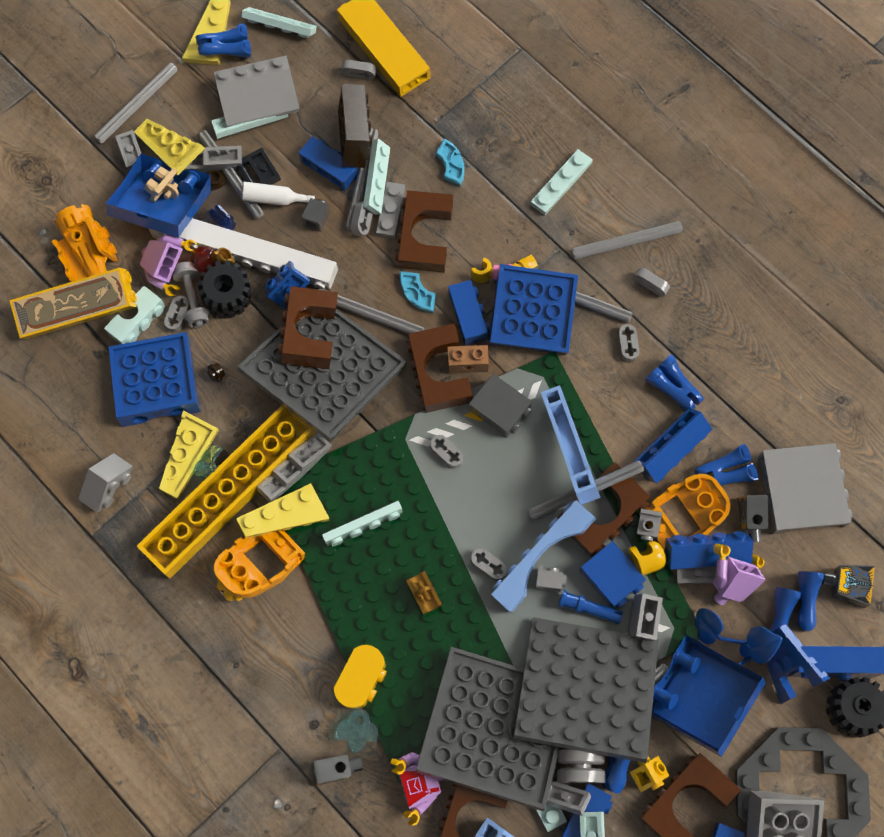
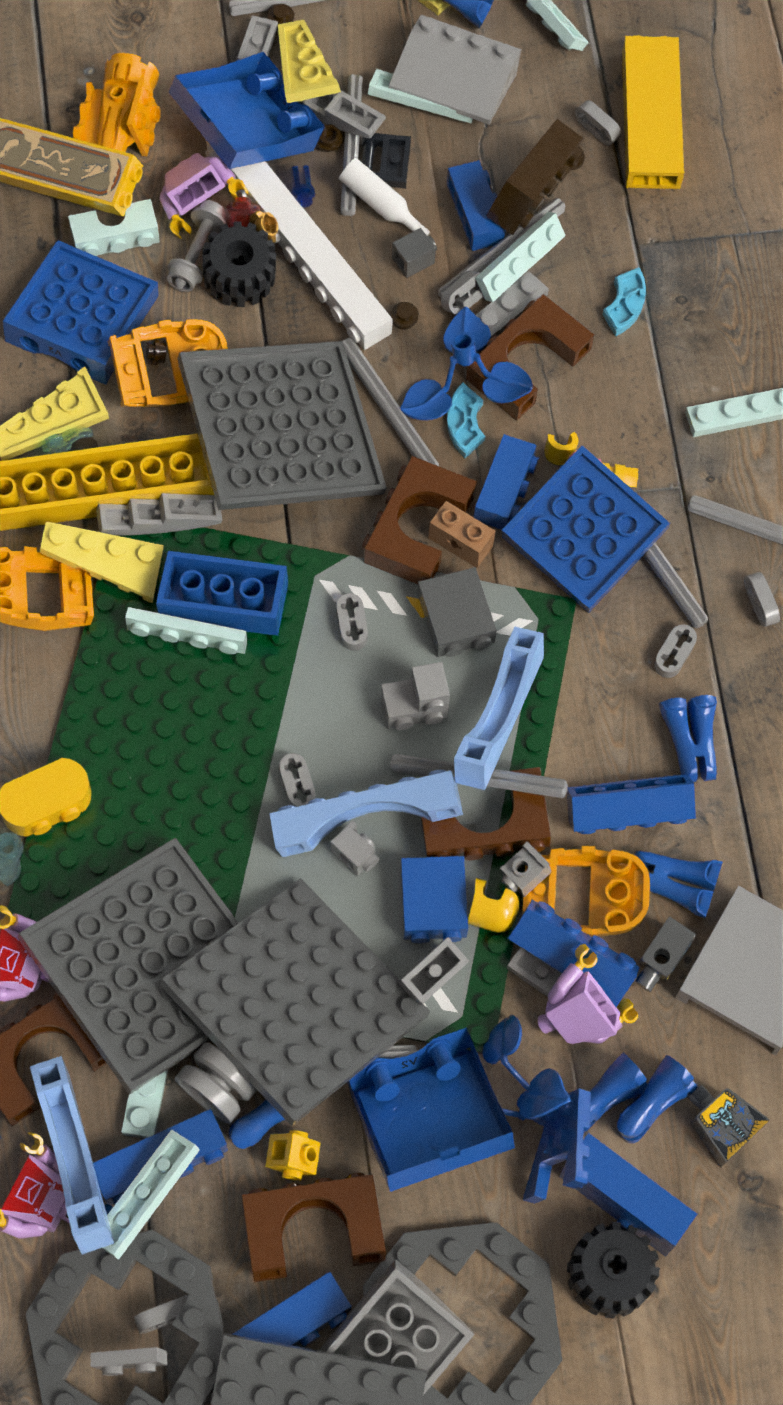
camera: 30 degrees right, 5 degrees down
(130, 123) = (281, 13): none -> dark brown plate
(165, 186) = (261, 105): tan hips -> none
(173, 312) = (162, 255): light grey beam -> none
(229, 357) = (130, 363): none -> light orange slope
(280, 285) = (313, 306): blue bracket -> none
(297, 348) = (309, 337): reddish brown arch -> none
(338, 254) = (404, 315): none -> dark brown plate
(367, 487) = (223, 592): none -> blue brick
(384, 243) = (464, 338): none -> blue plant
(424, 592) = (193, 756): pearl gold hips -> none
(521, 466) = (418, 699): none -> light grey brick
(568, 798) = (170, 1103): light grey plate -> none
(580, 605) = (368, 904): blue pin -> none

